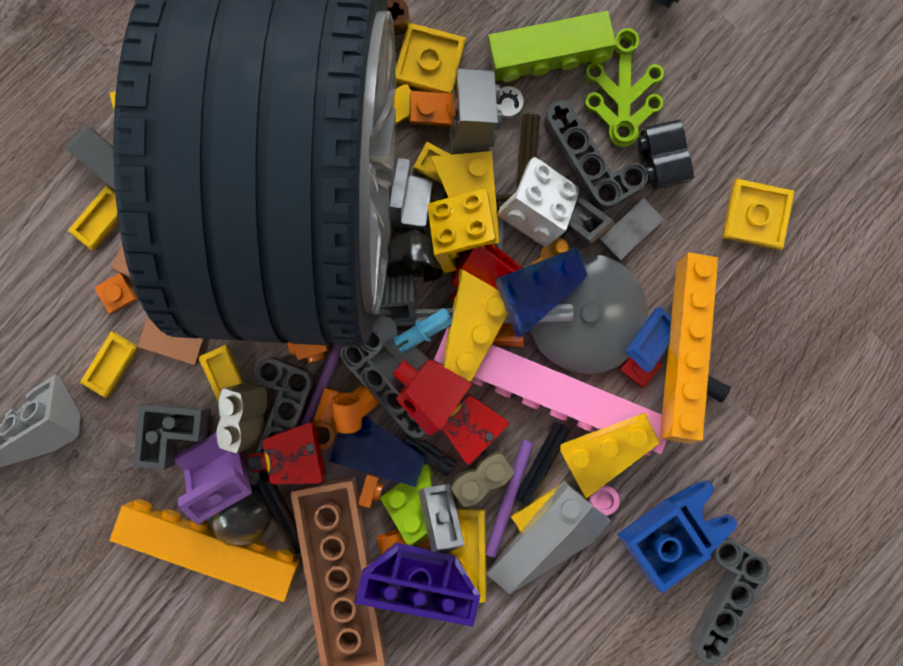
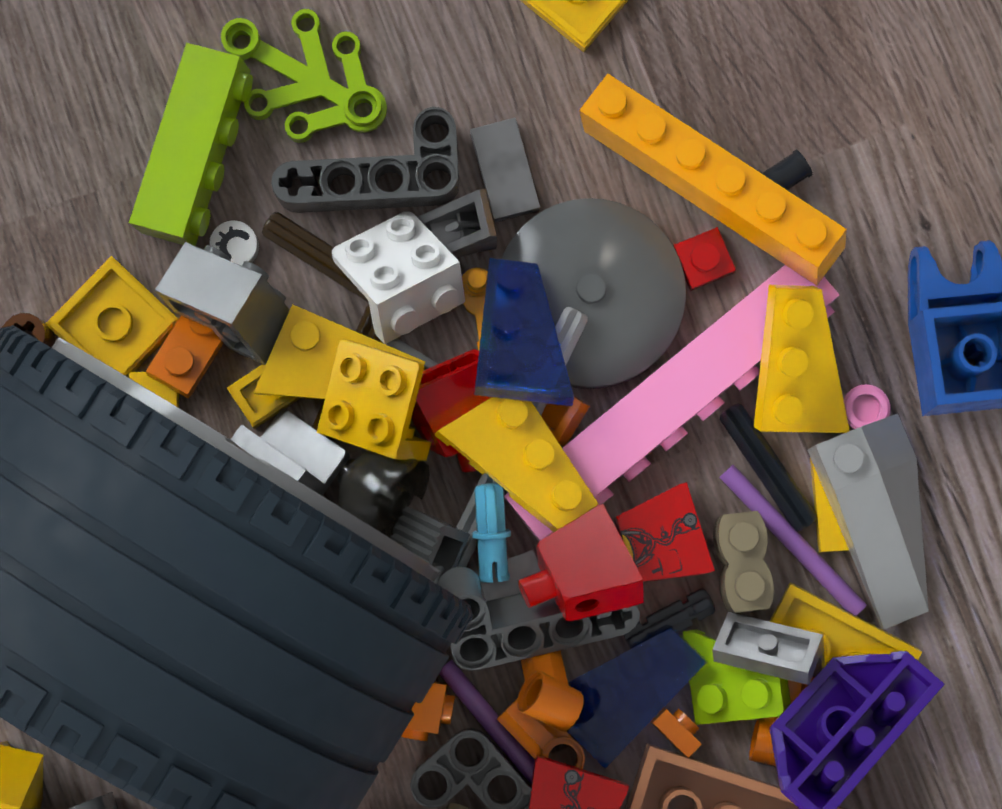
camera: 55 degrees left, 5 degrees down
(651, 340) = (674, 224): blue tile -> none
(666, 154) = (427, 68): black brick -> none

